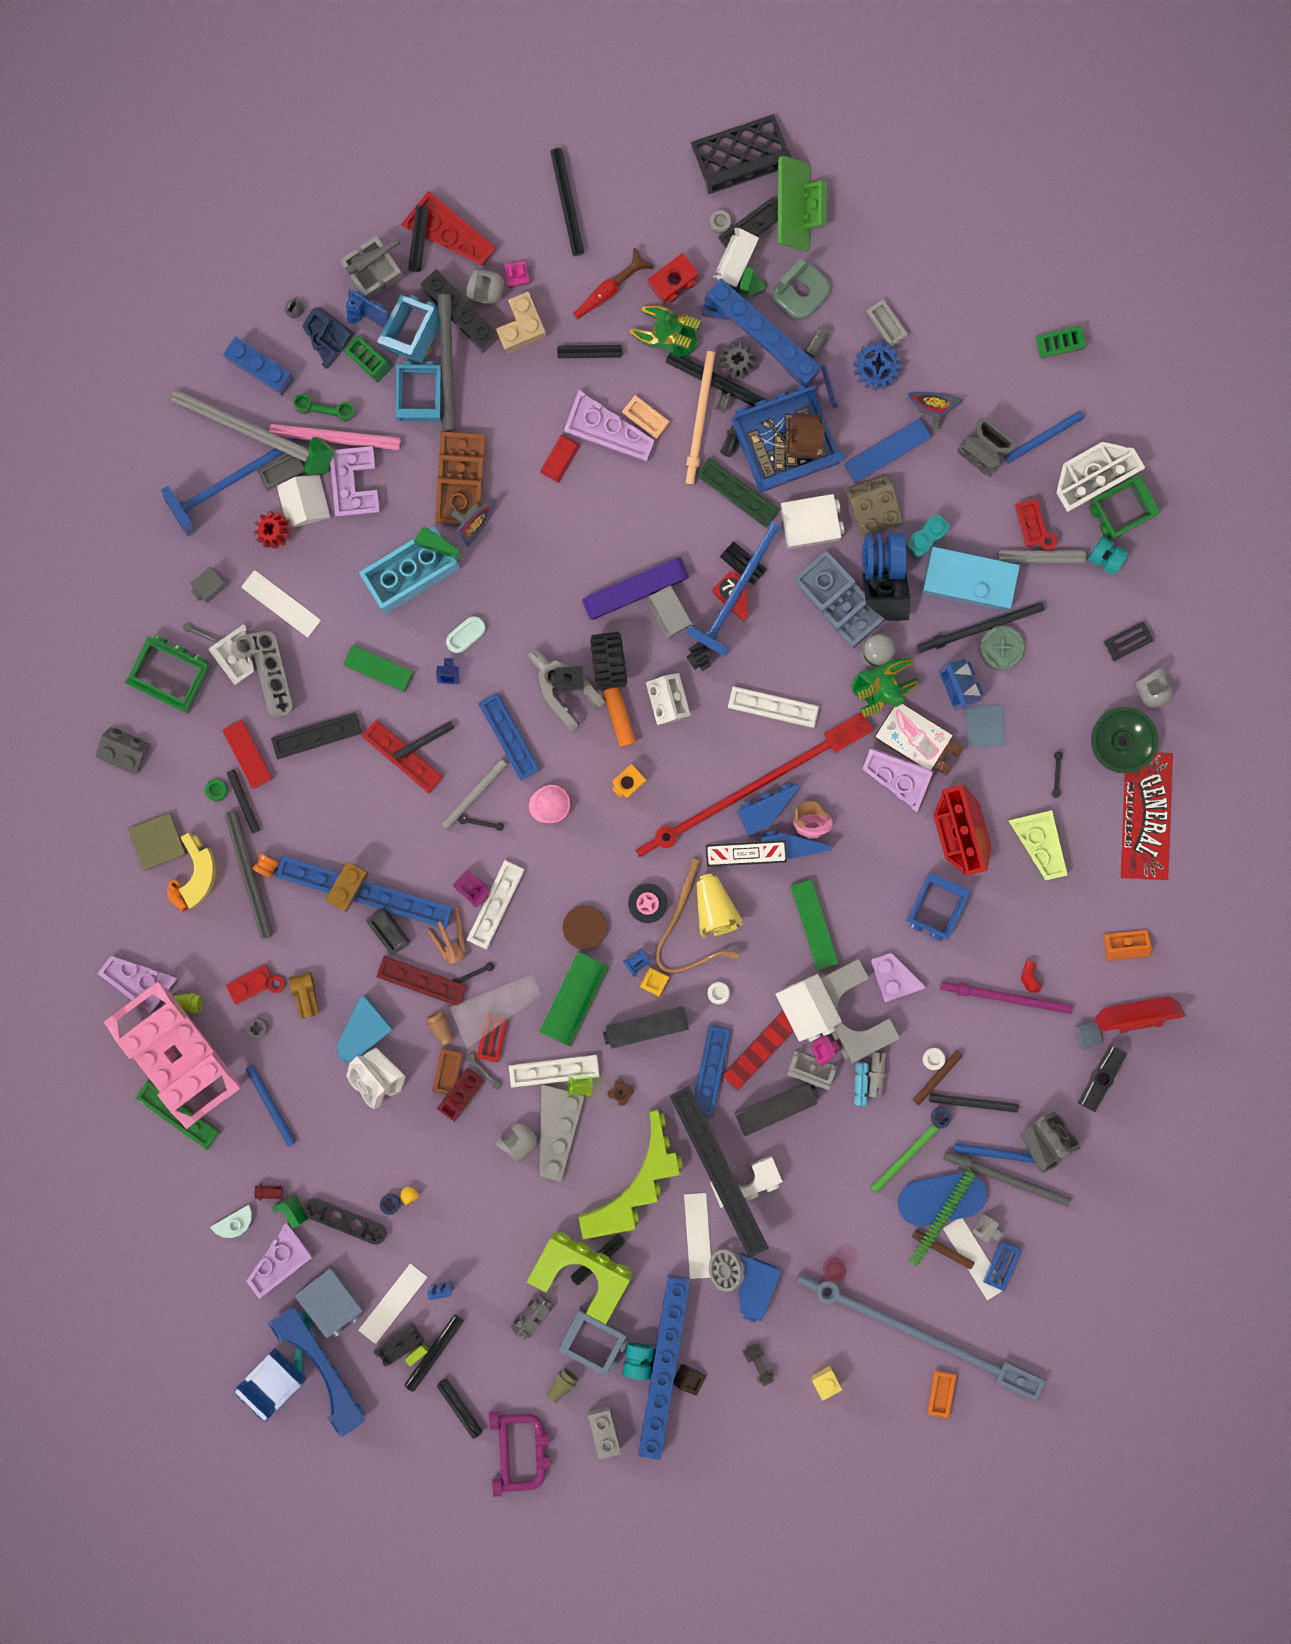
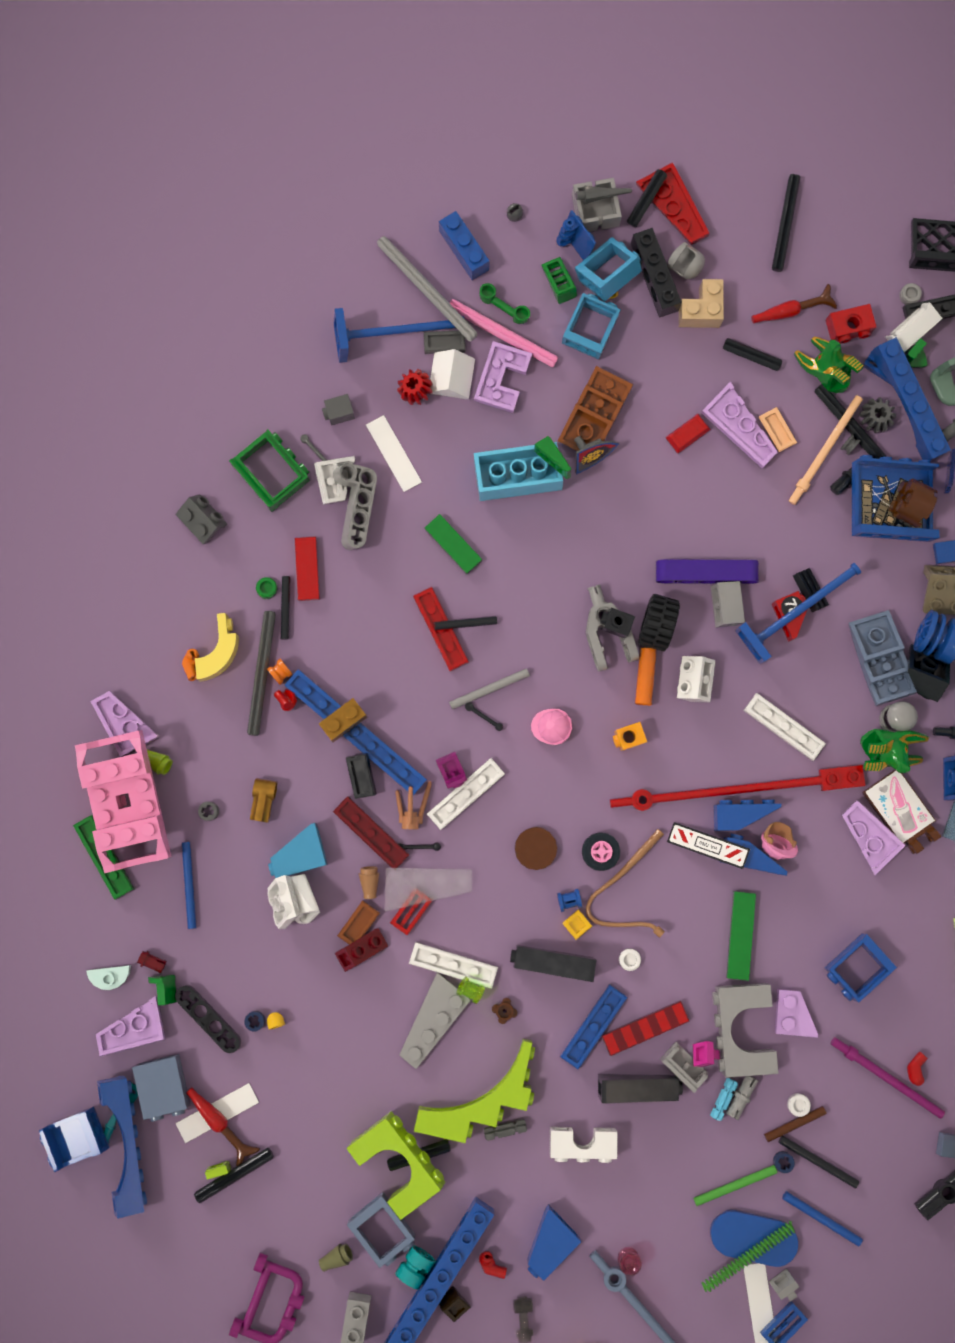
camera: 20 degrees right, 5 degrees down
(157, 841) = (195, 610): olive tile -> none
(254, 983) = (222, 771): red hinge -> none
(284, 889) = (286, 699): none -> red plate
(316, 735) = (374, 578): black tile -> none
(319, 457) = (481, 343): green tile -> none
(327, 335) = (533, 245): dark blue slope -> none
(399, 1312) = (219, 1123): none -> red piece
(399, 1344) = (205, 1153): black hinge -> none
(436, 1293) = (266, 1119): blue tile -> none
(445, 313) = (644, 266): dark grey piece -> none
(448, 673) = (512, 574): clear blue tile -> none
(459, 1408) = (234, 1238): black axle -> none
(465, 635) = (541, 548): light aqua tile -> none
(471, 1058) = (384, 921): dark grey hinge -> none
(509, 736) = (541, 652): blue tile -> none
(517, 274) = (717, 264): dark pink tile -> none
(520, 1143) = (398, 1022): light grey helmet -> none
(536, 1308) = (327, 1184): flat silver hinge -> none
(574, 999) = (499, 908): green brick -> none
(668, 1201) = (505, 1129): none -> dark grey axle
(697, 1235) = (518, 1173): white sticker -> none
(699, 657) = (738, 655): black gear -> none
(707, 1331) = (490, 1267): none -> red arm
(715, 908) = (660, 882): light yellow cone -> none
(719, 1172) = (564, 1126): black plate -> none
(726, 1270) = (531, 1218): light grey wheel -> none
(737, 492) = (830, 528): dark green tile -> none
(809, 1008) = (707, 1010): white brick -> none
(811, 521) = (886, 580): white brick -> none
(945, 1250) = (738, 1289): reddish brown bar -> none
(962, 830) = (910, 909): red wedge -> none
(966, 1162) = (789, 1213): dark grey bar -> none
(1049, 1141) = (876, 1230): dark grey piece -> none

